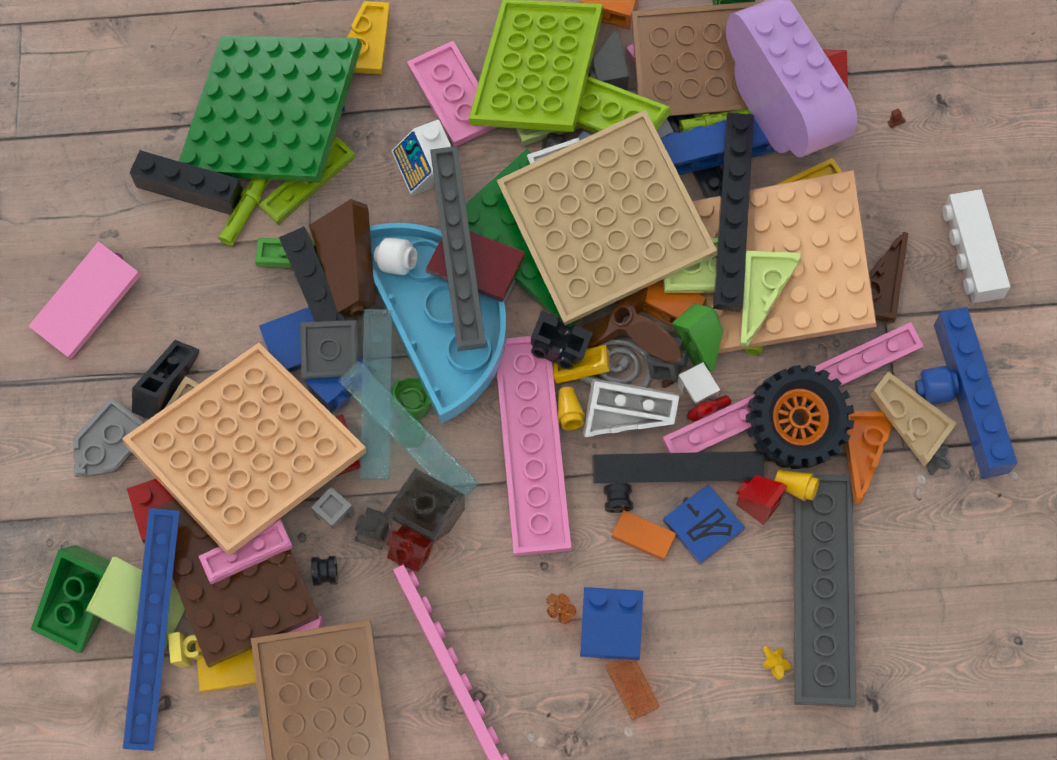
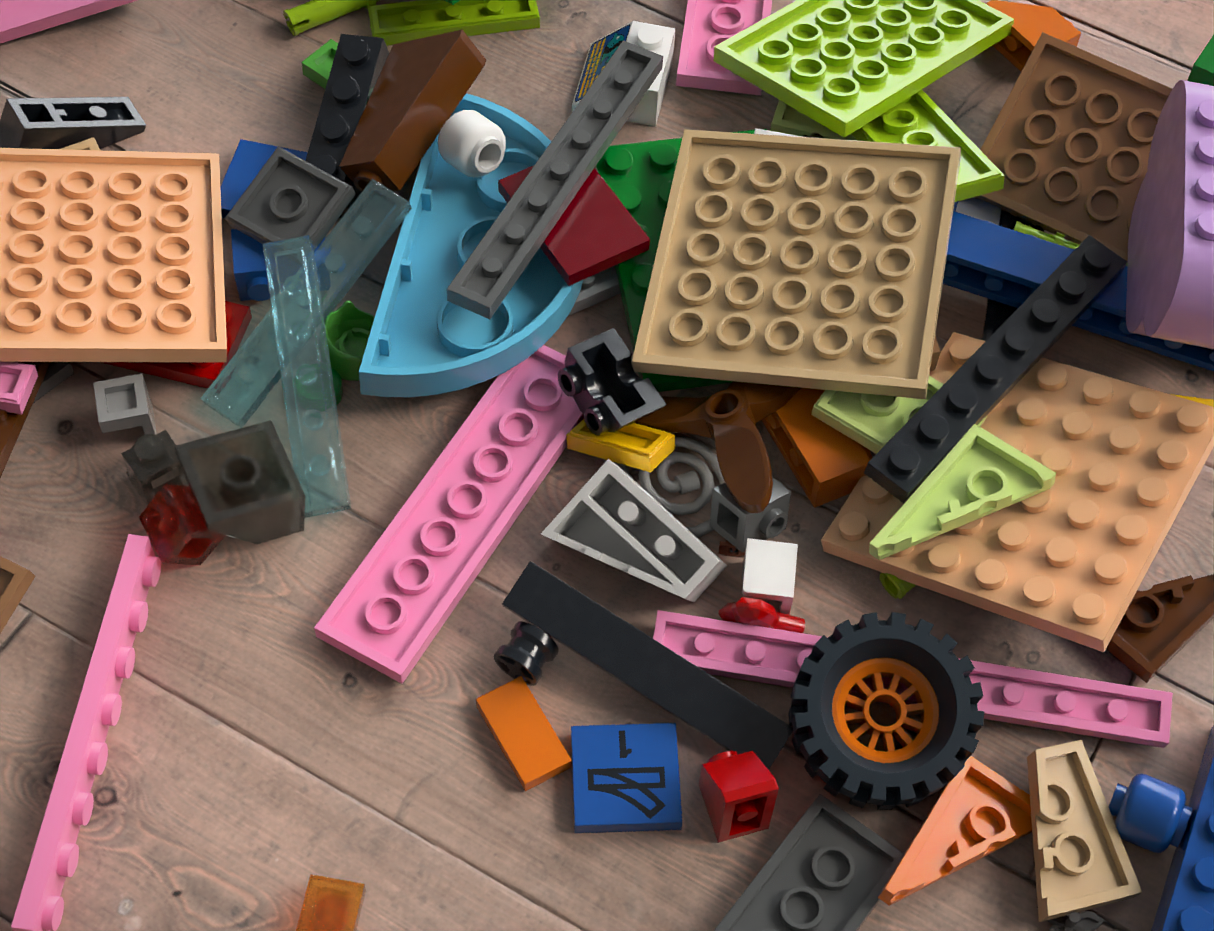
camera: 30 degrees right, 10 degrees down
(324, 570) = (47, 481): black wheel -> none
(560, 607) = (318, 750): clear orange plant -> none
(569, 410) = (555, 490): yellow cone -> none
(610, 63) = (972, 98): dark grey slope -> none
(611, 623) = (366, 819): blue slope -> none
(700, 334) = (822, 502): bright green slope -> none
(799, 484) = (810, 810): yellow cone -> none

